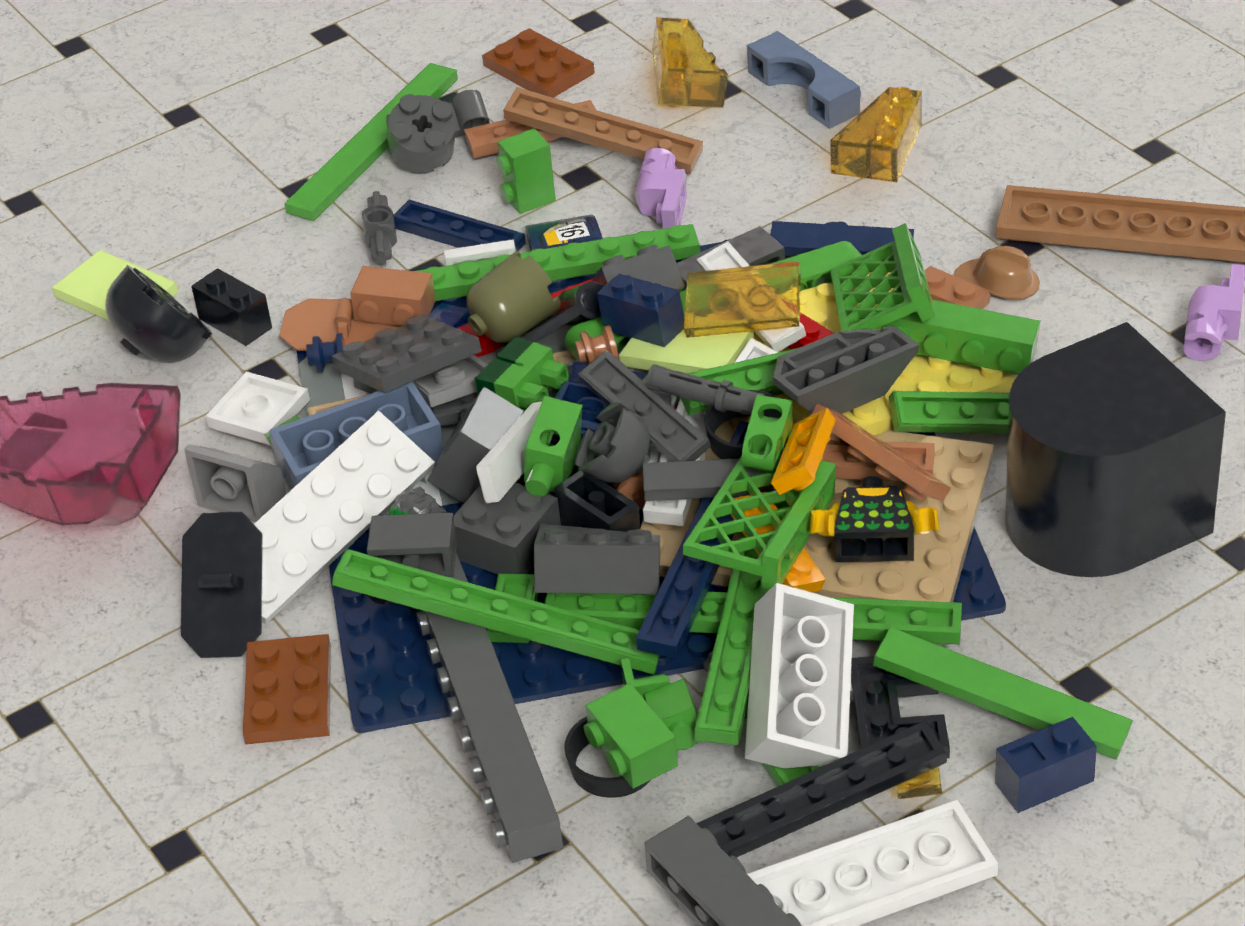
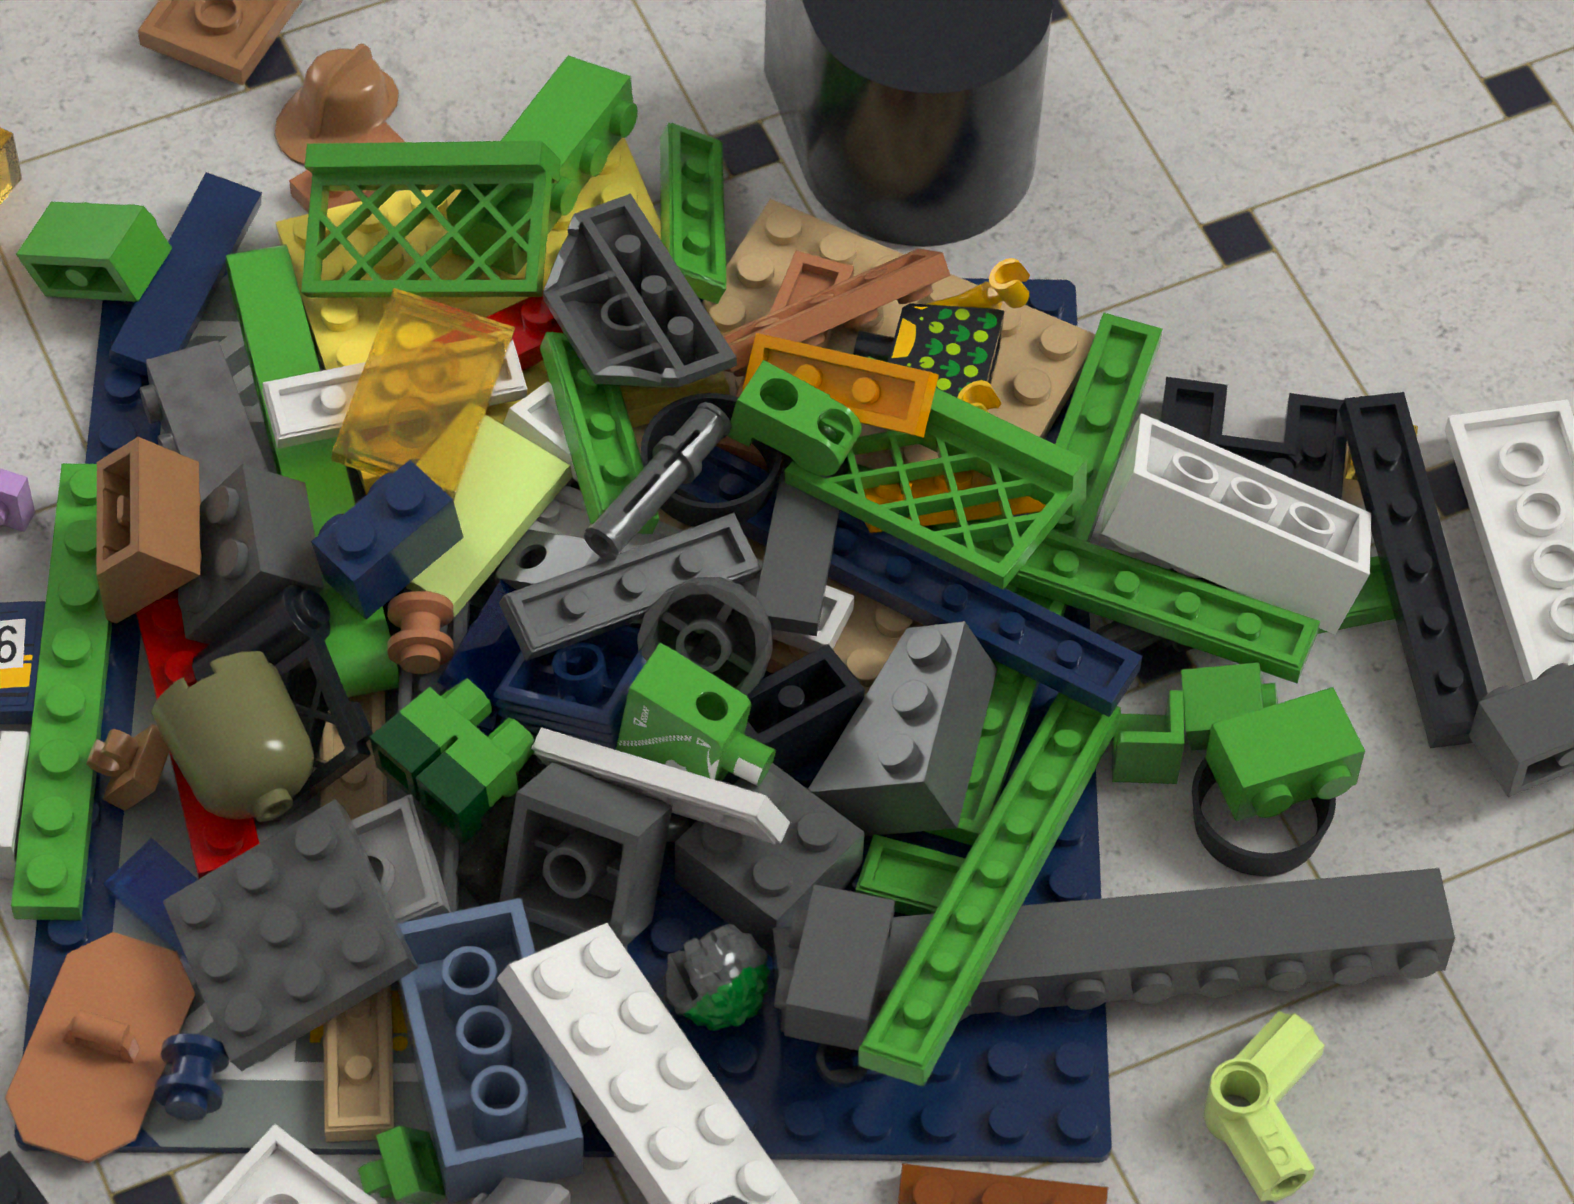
camera: 85 degrees left, 15 degrees up
(391, 295) = (97, 941): nougat brick -> none
(393, 777) = (1259, 1132): none -> yellowish green piece
(630, 229) = (145, 526): none -> medium nougat slope
(837, 200) = (94, 251): none -> bright green brick
(997, 689) = (1264, 319): bright green tile -> none
(1045, 764) = (1407, 306): dark blue brick -> none

